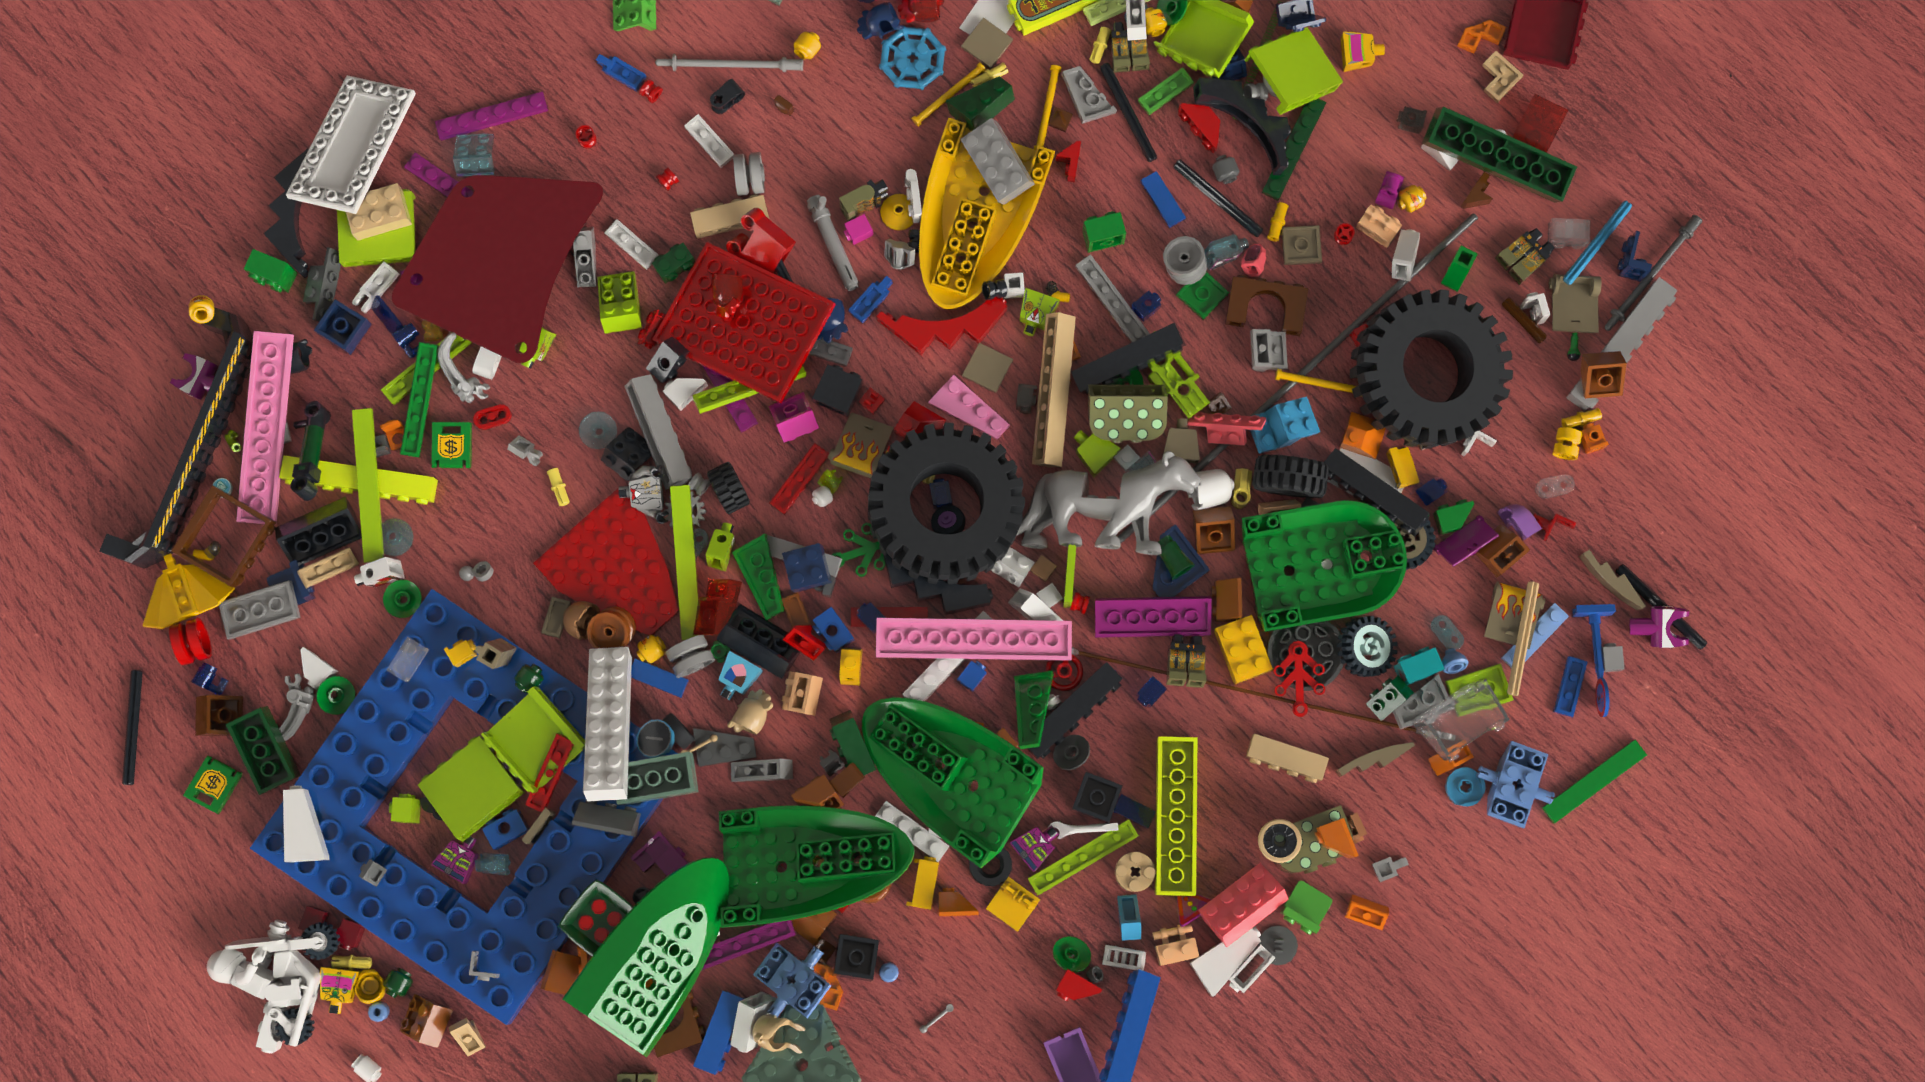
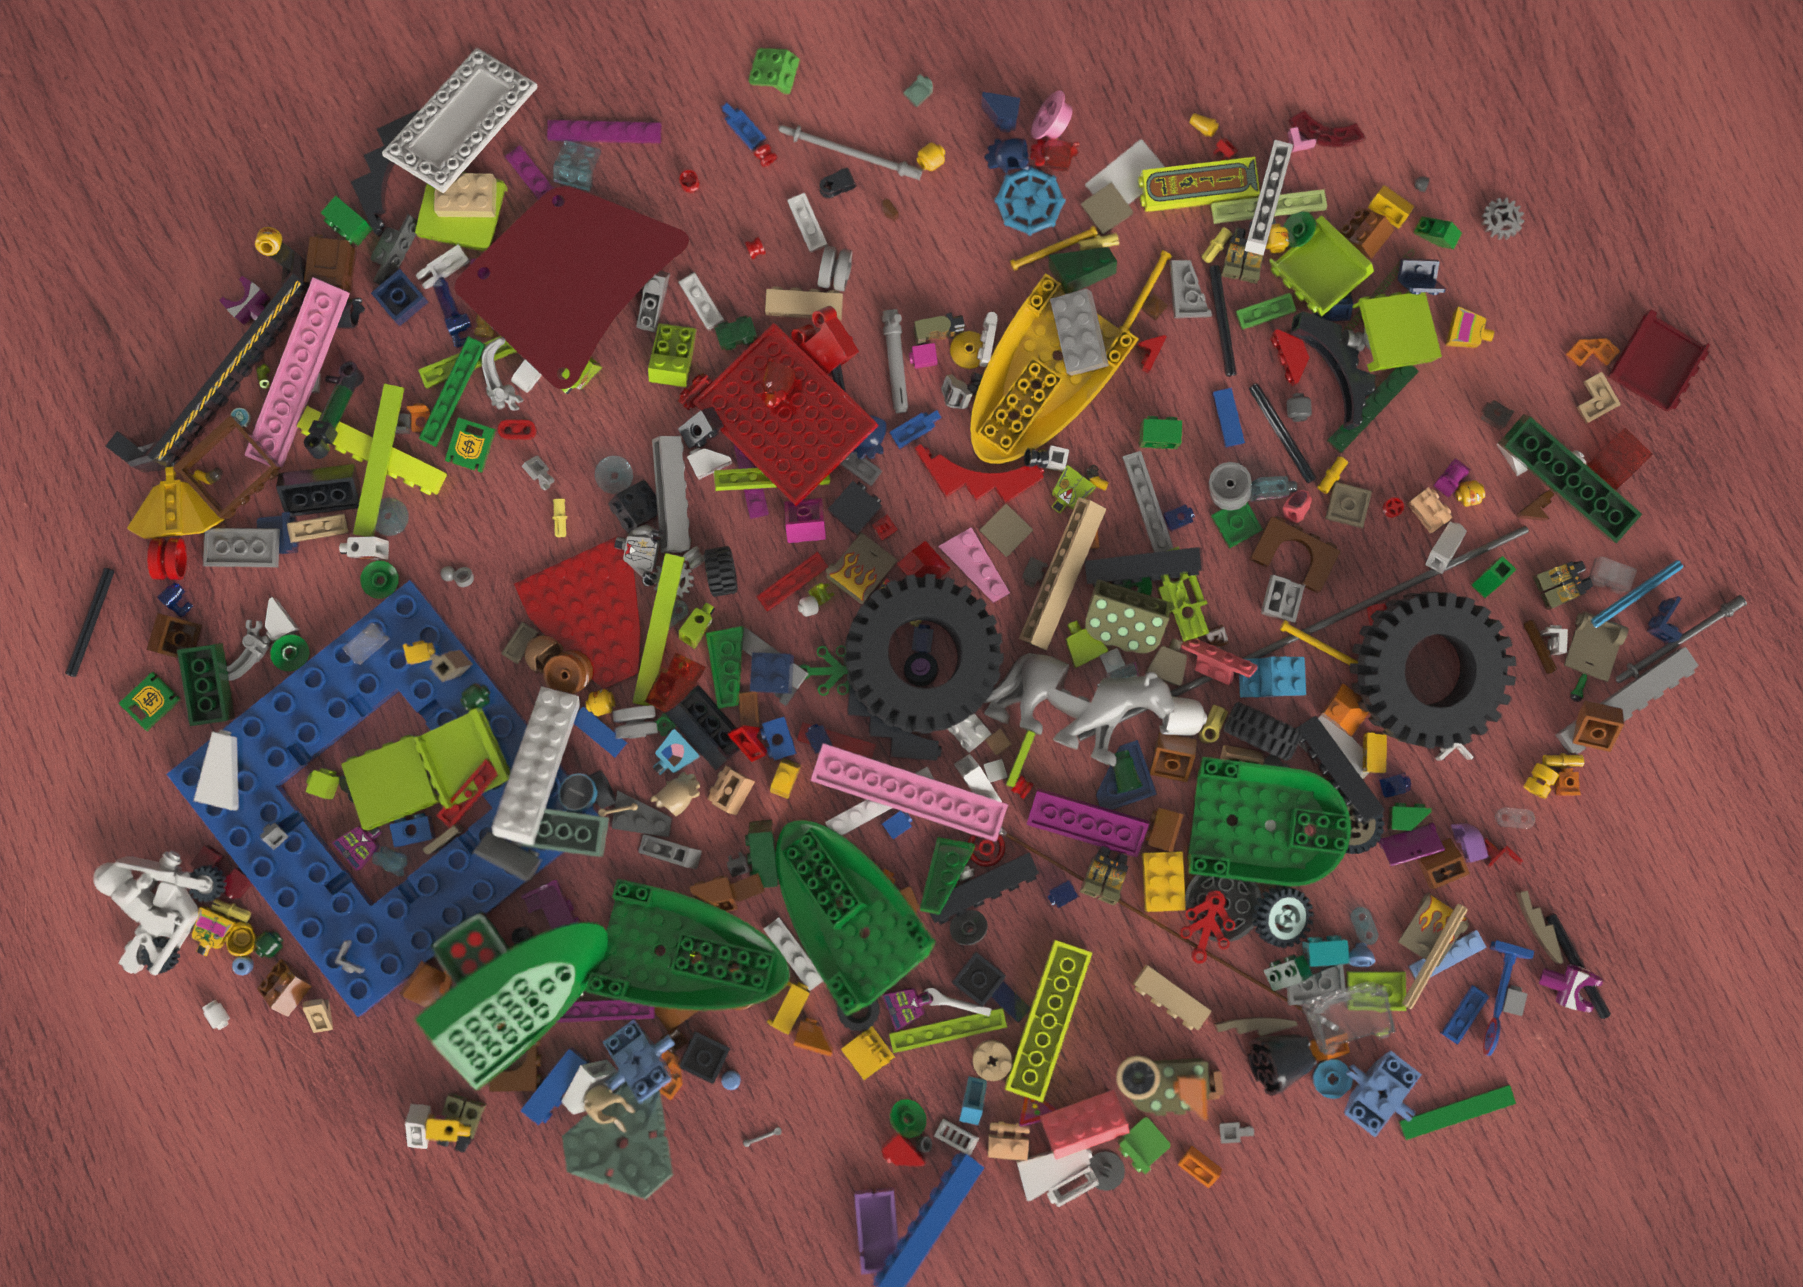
camera: 15 degrees right, 5 degrees up
(266, 312) = (330, 261): none -> reddish brown container
(1409, 784) = (1280, 1061): none -> black cone

